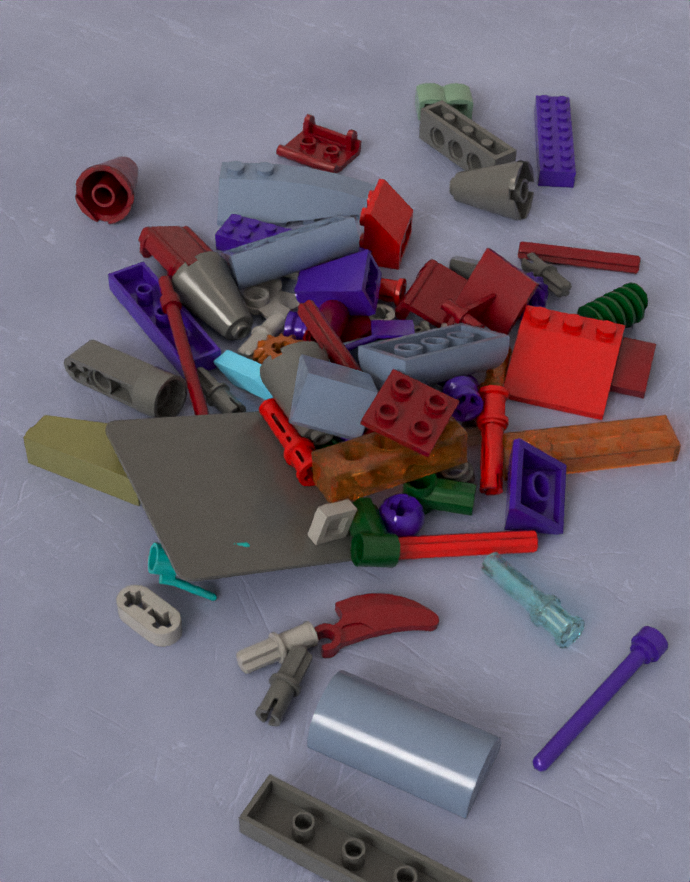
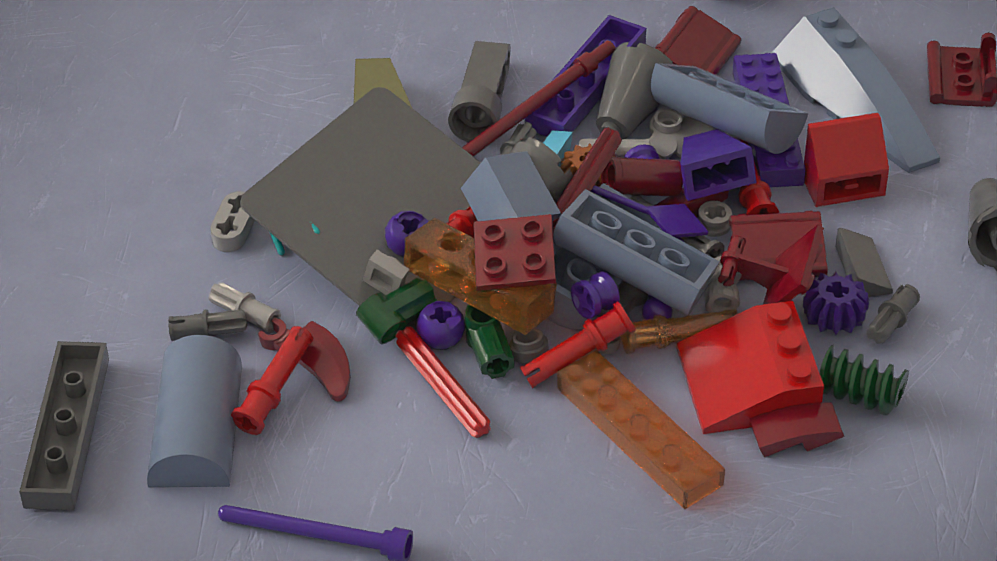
camera: 65 degrees right, 0 degrees up
(294, 486) = (399, 227): none -> dark purple piece
(413, 670) = (265, 393): none -> red pin
(534, 490) = (527, 394): dark purple slope -> none
(543, 609) = (394, 458): clear light blue pin -> none
(581, 257) = (956, 333): dark red axle -> none

